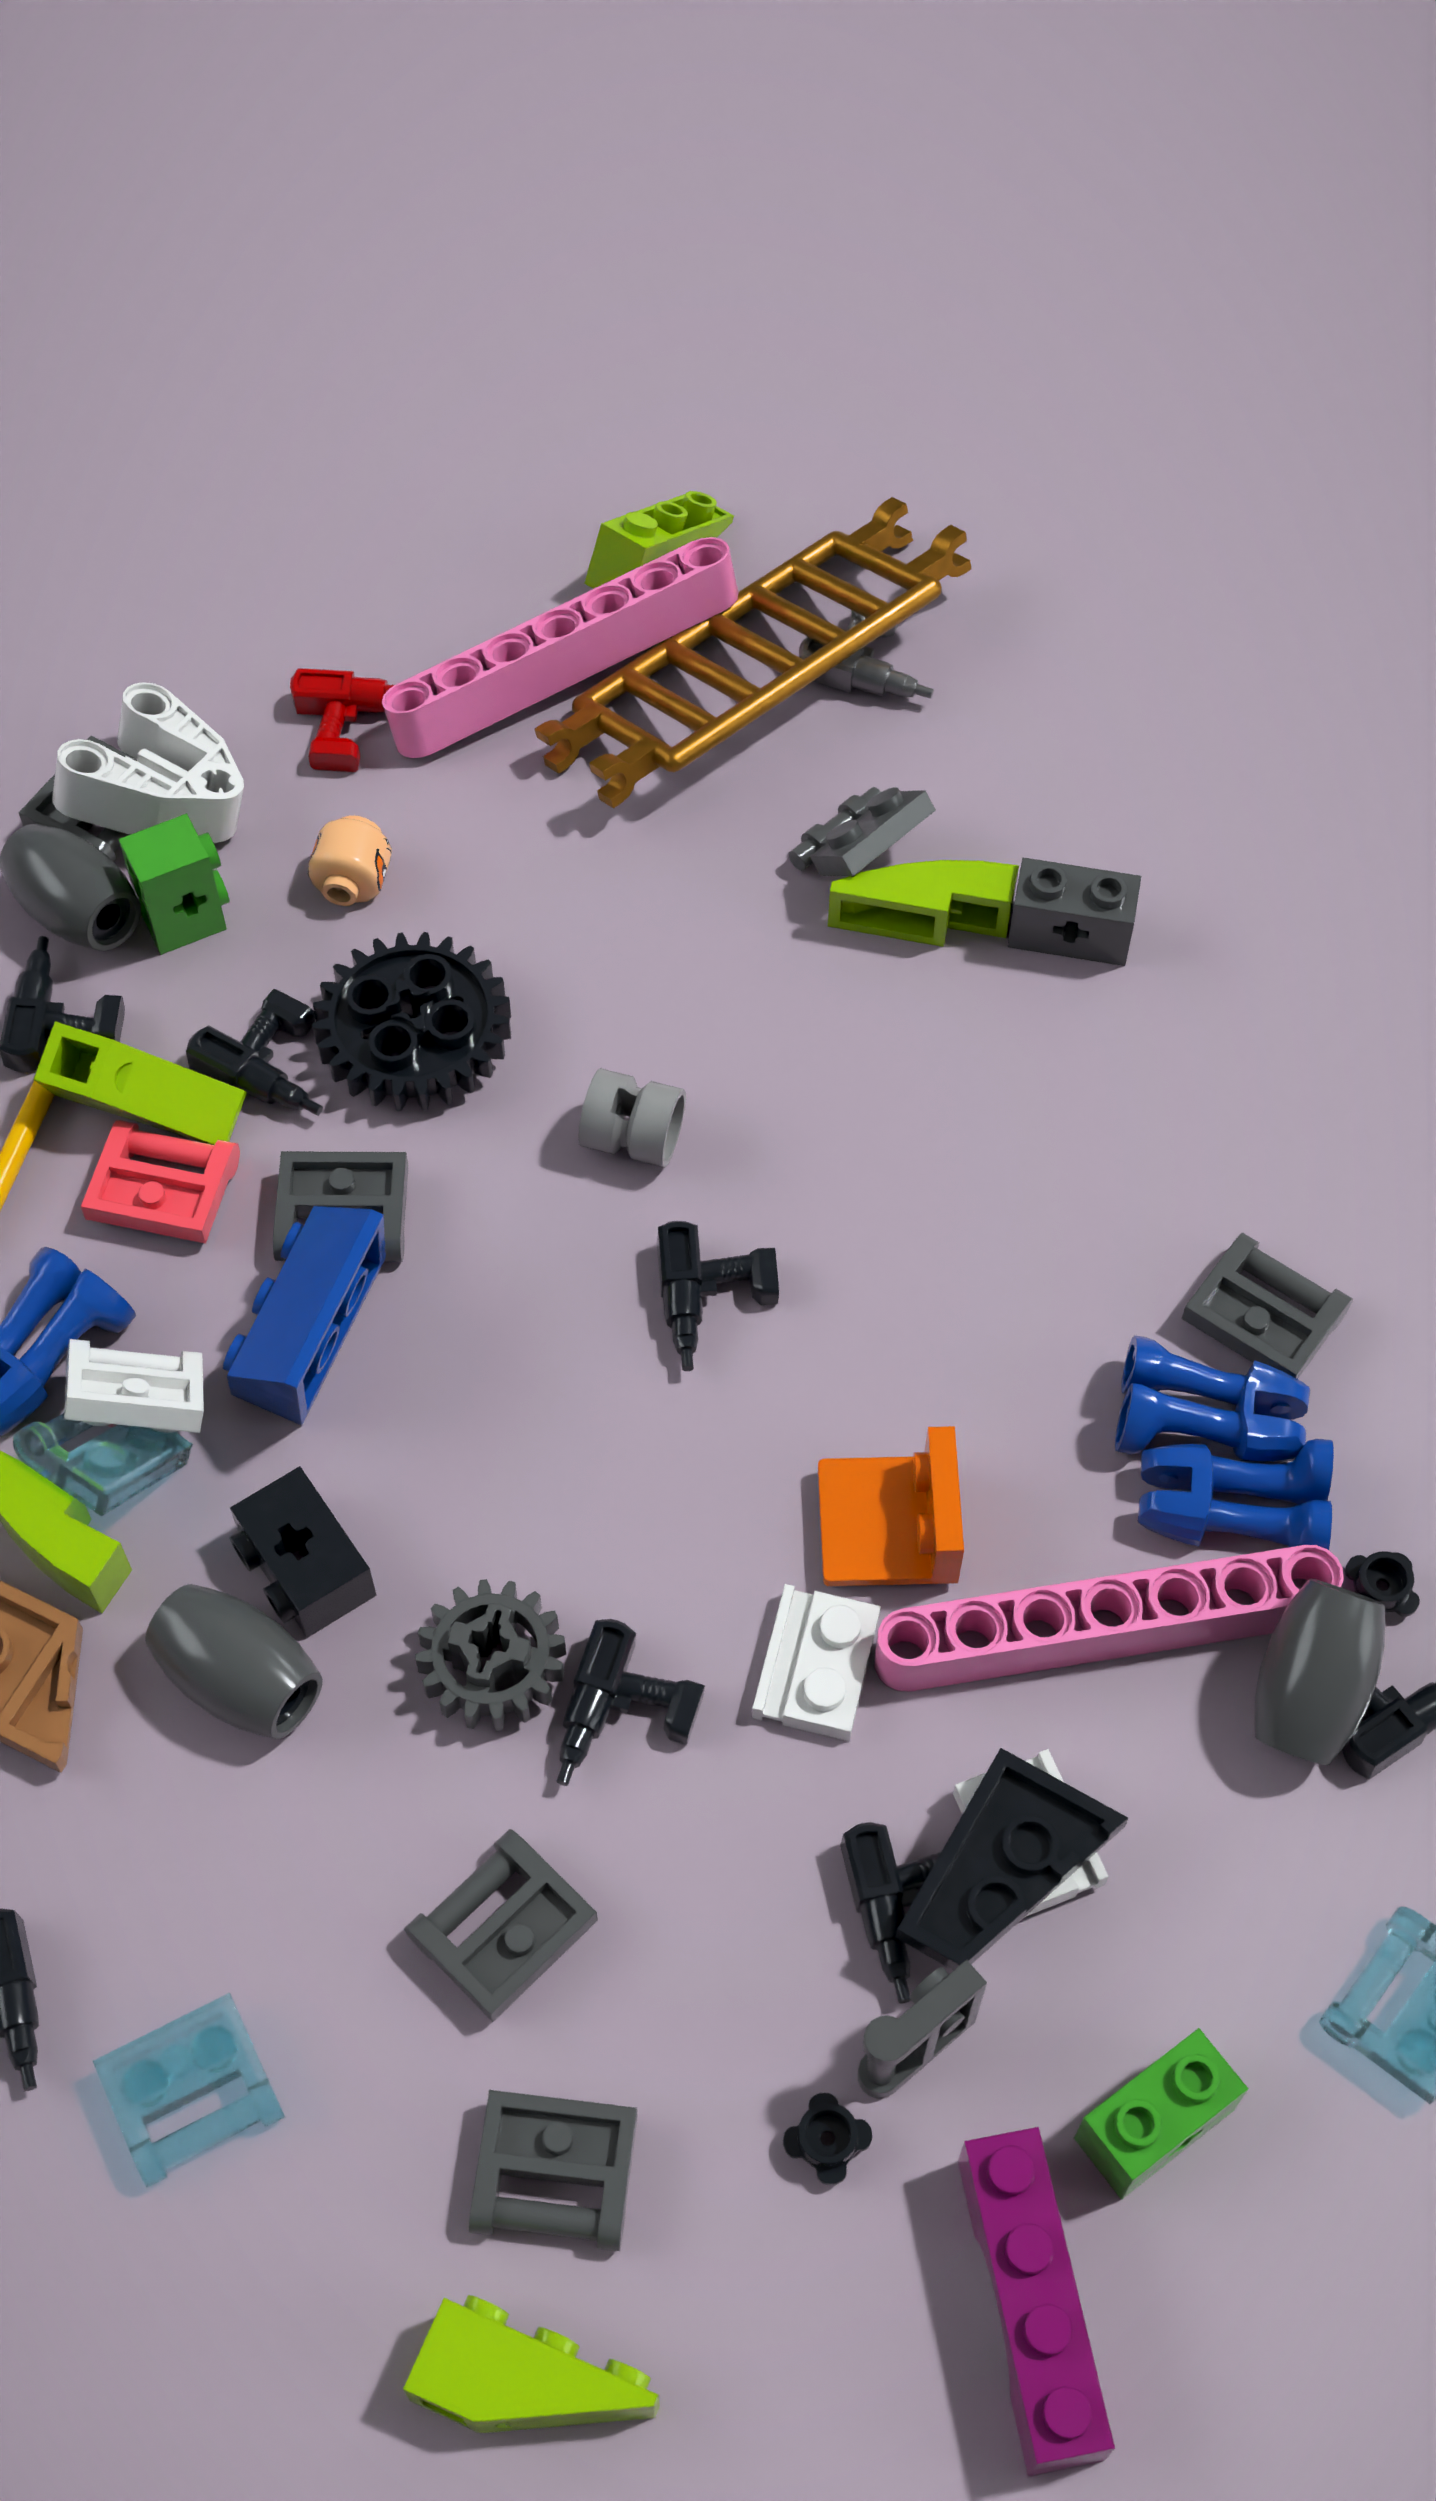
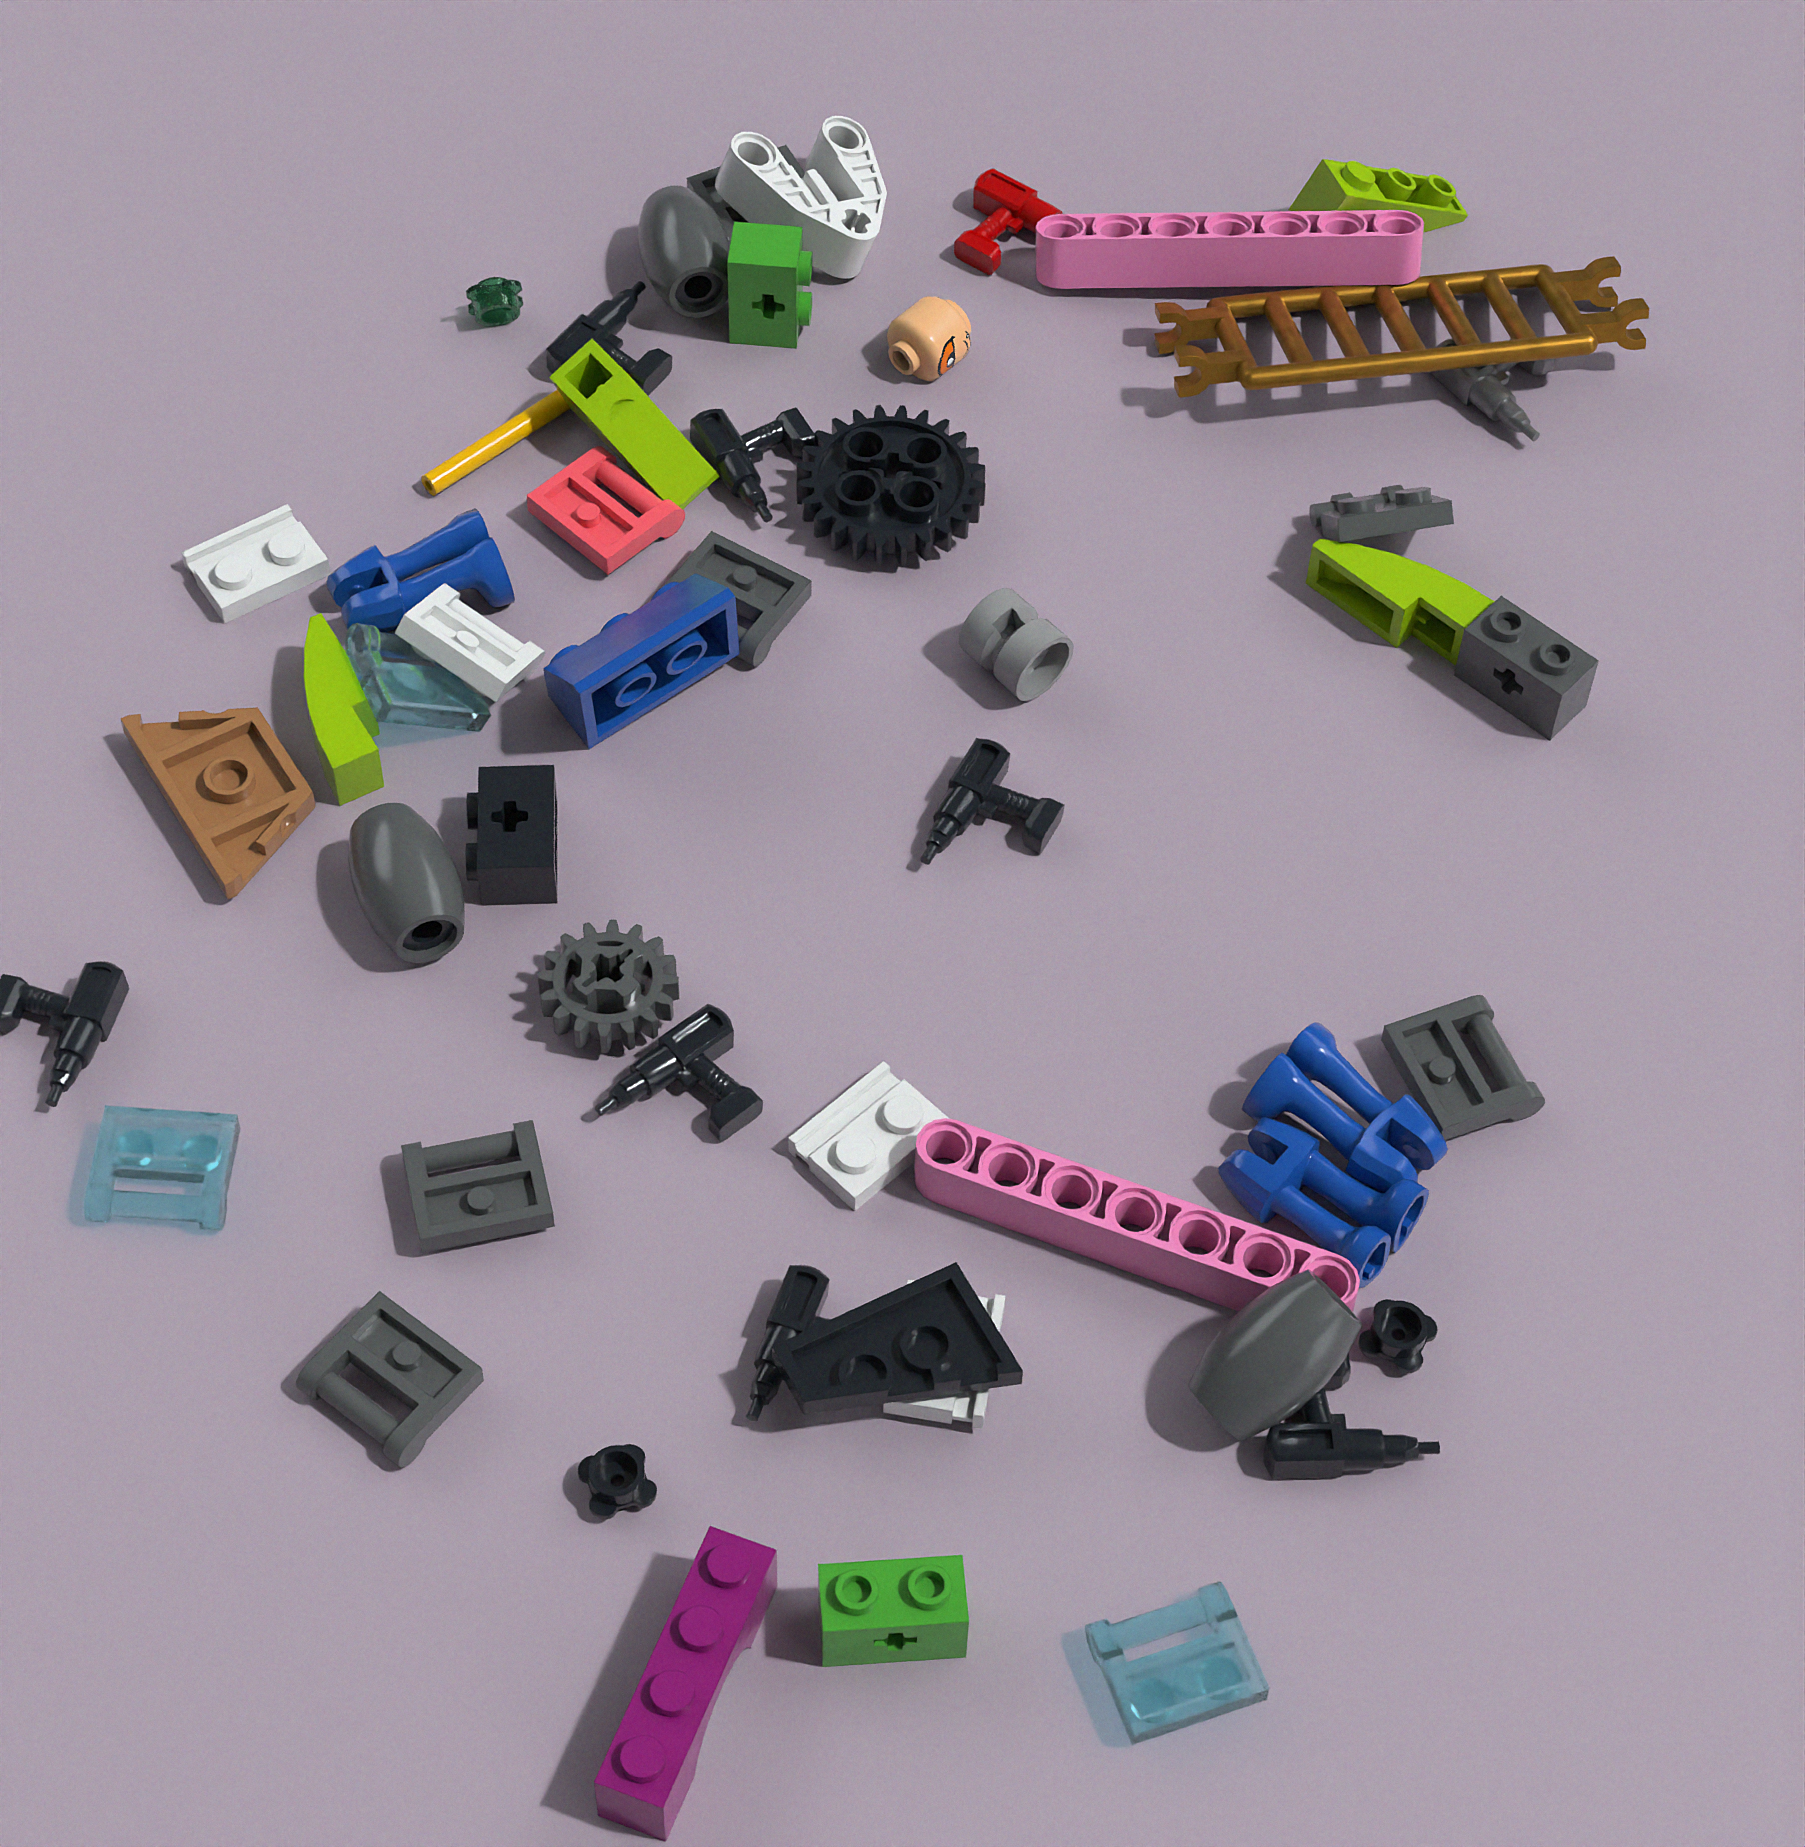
camera: 30 degrees right, 5 degrees down
(508, 2381) = (246, 1501): lime slope -> none
(893, 1517) = (1011, 1057): orange bracket -> none
(904, 2045) = (761, 1425): dark grey plate -> none

